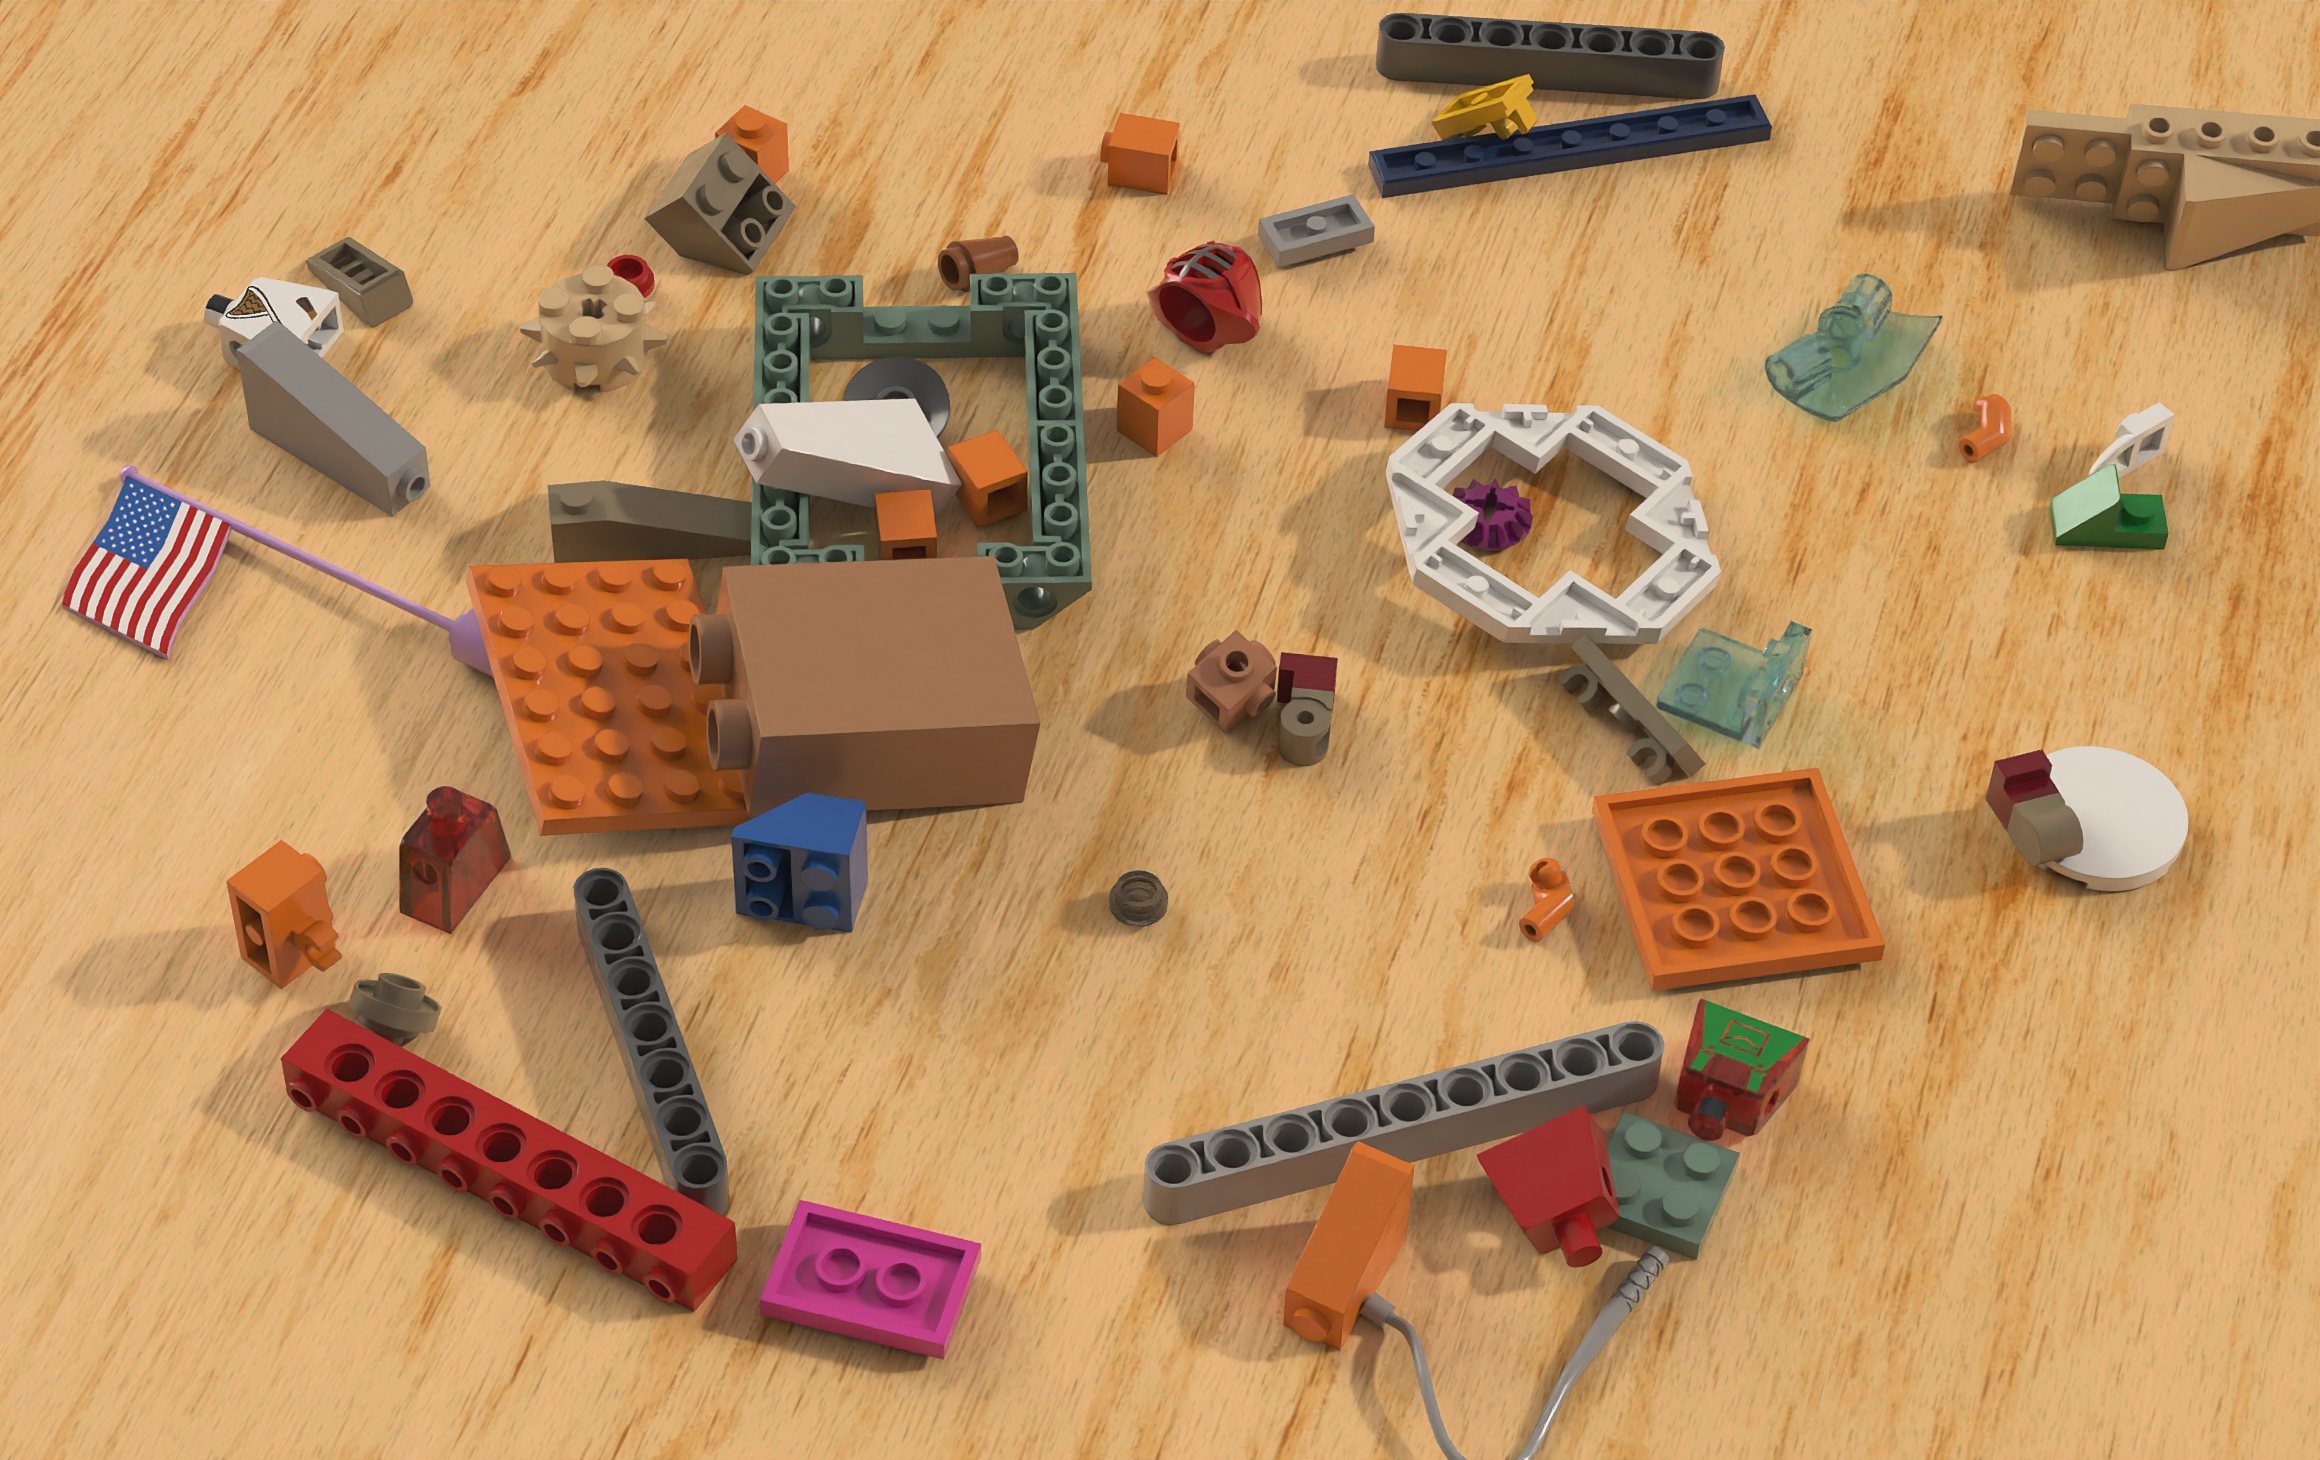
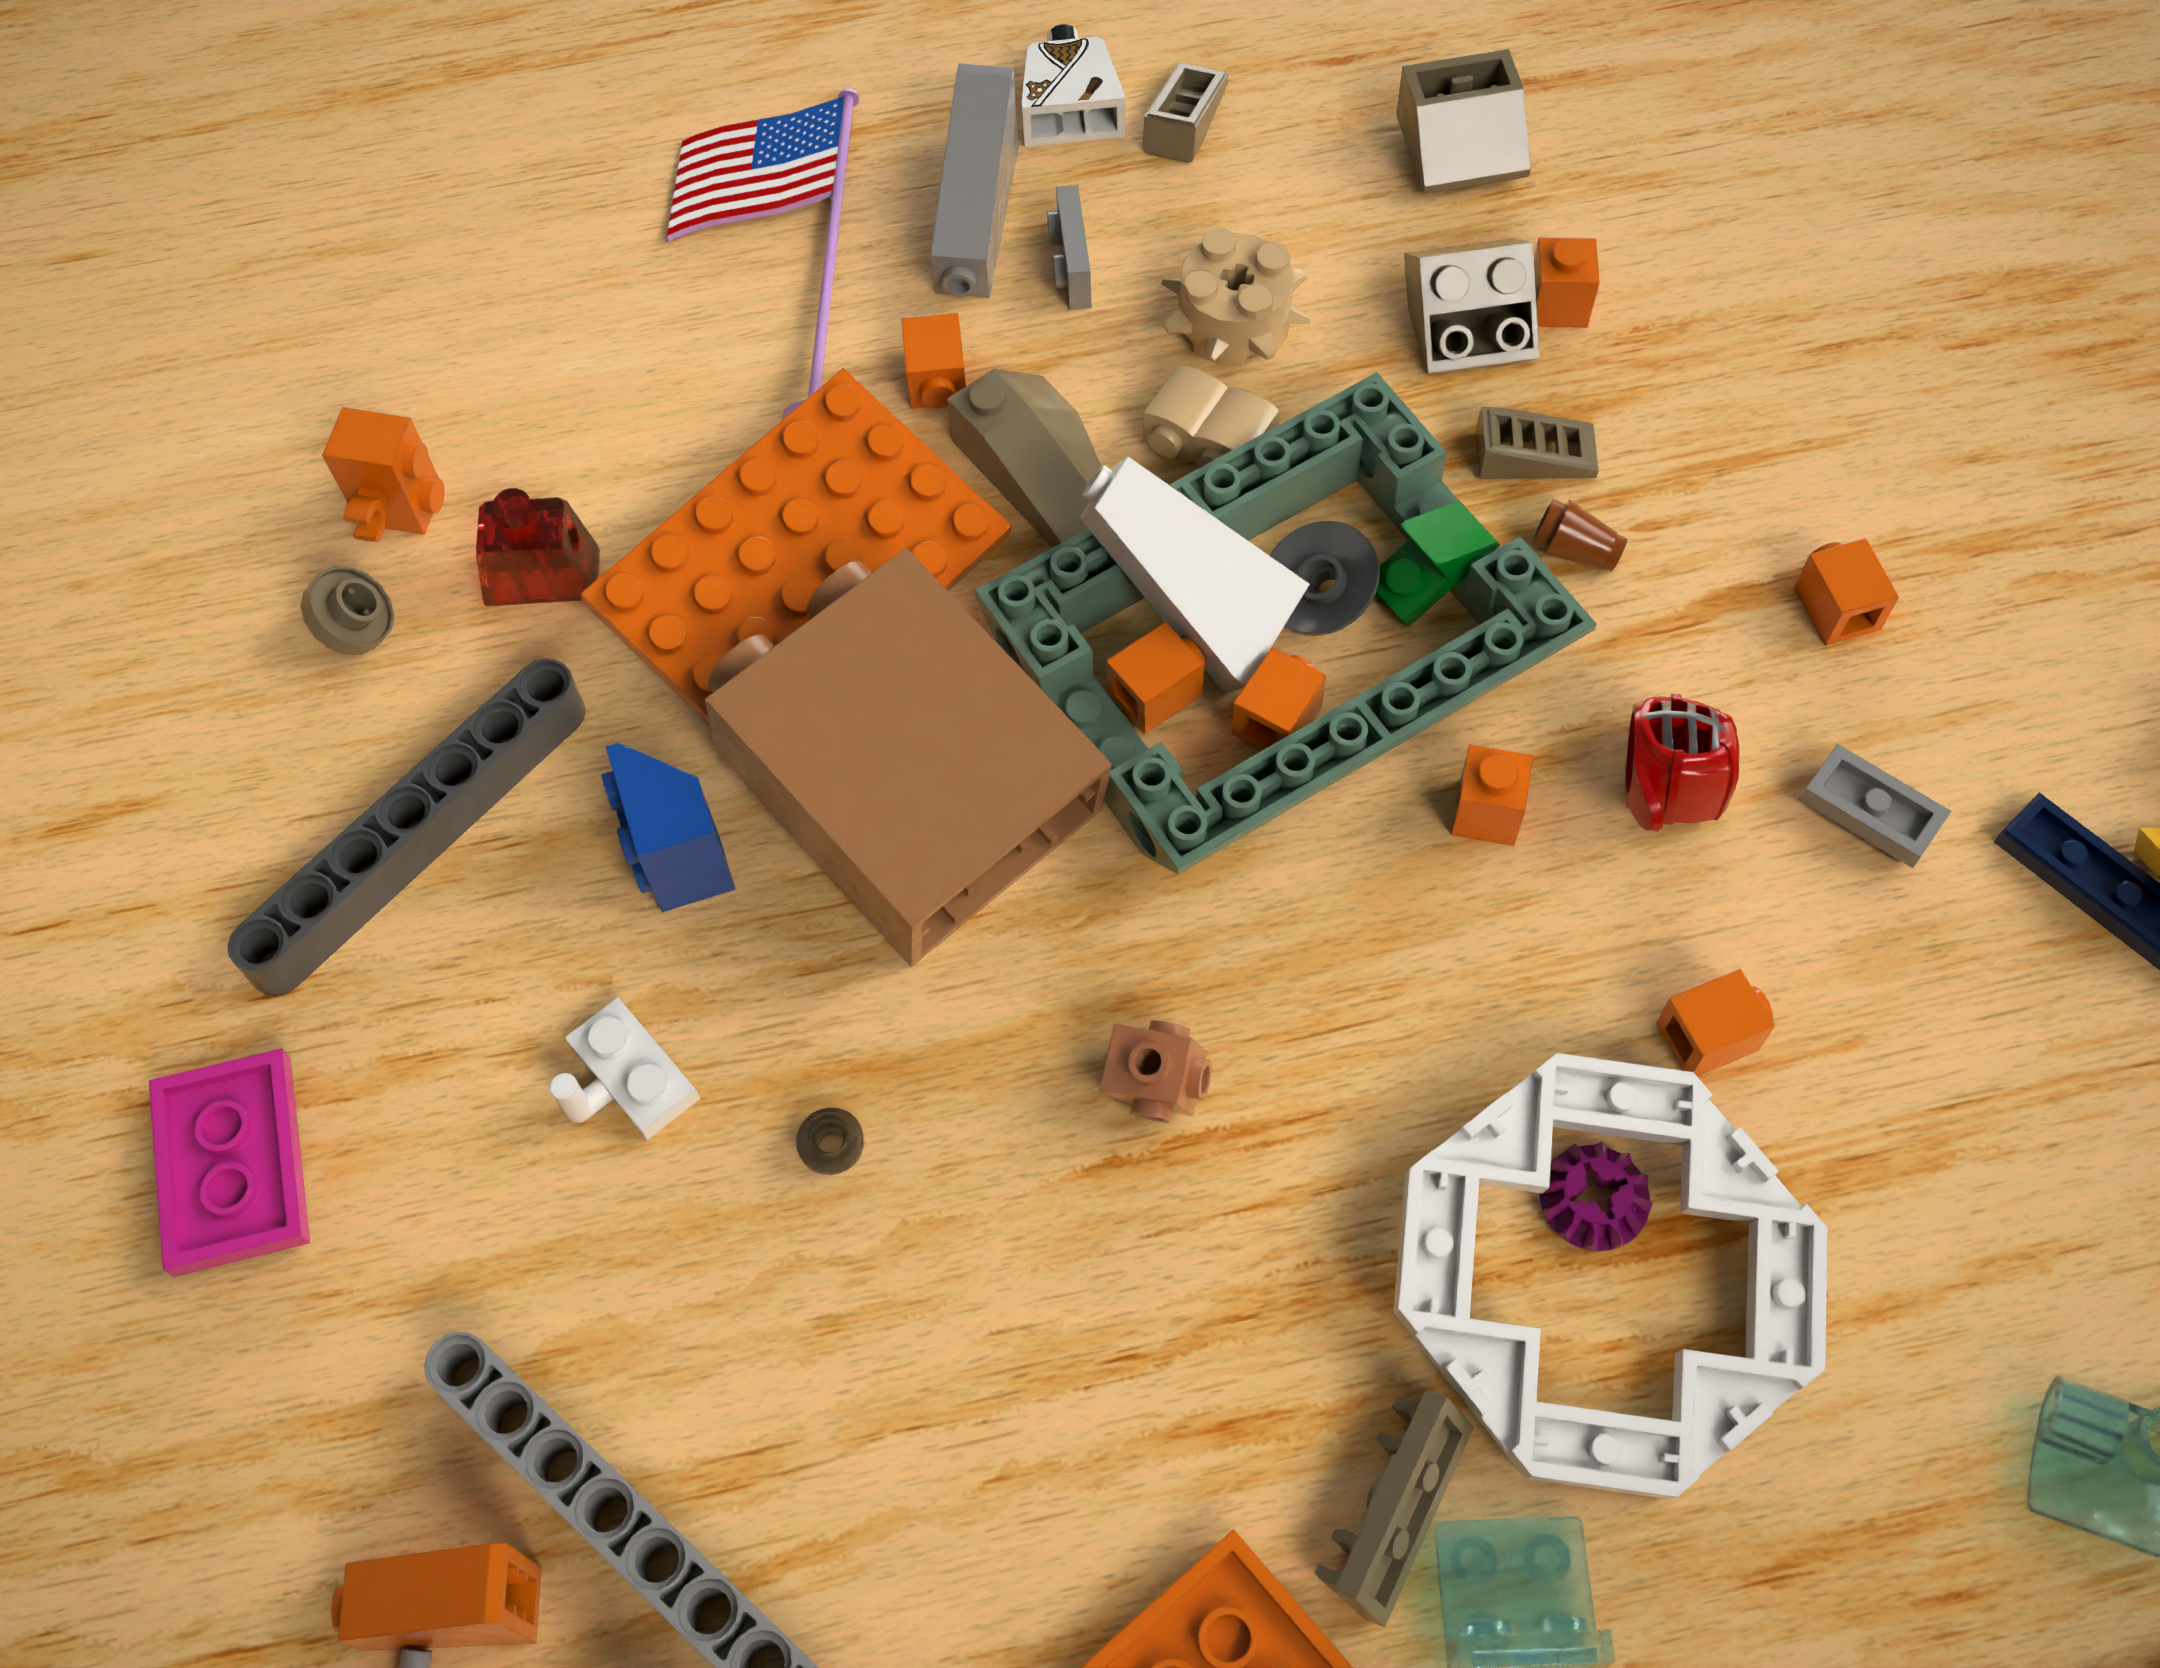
camera: 65 degrees right, 15 degrees up
(445, 402) = (1072, 264): none -> light grey plate
(481, 531) = (933, 359): none -> orange brick
(510, 1160) = (247, 690): red brick -> none
(549, 124) = (1464, 121): none -> slope
(634, 271) = (1333, 288): red plate -> none
(694, 404) = (1203, 418): none -> tan brick
(846, 253) = (1515, 461): none -> dark tan slope
(937, 335) = (1433, 559): none -> green slope
(983, 1001) = (626, 1069): none -> white plate
(1306, 720) = (1181, 1165): dark tan leg -> none
(1552, 899) = (1075, 1558): orange arm -> none

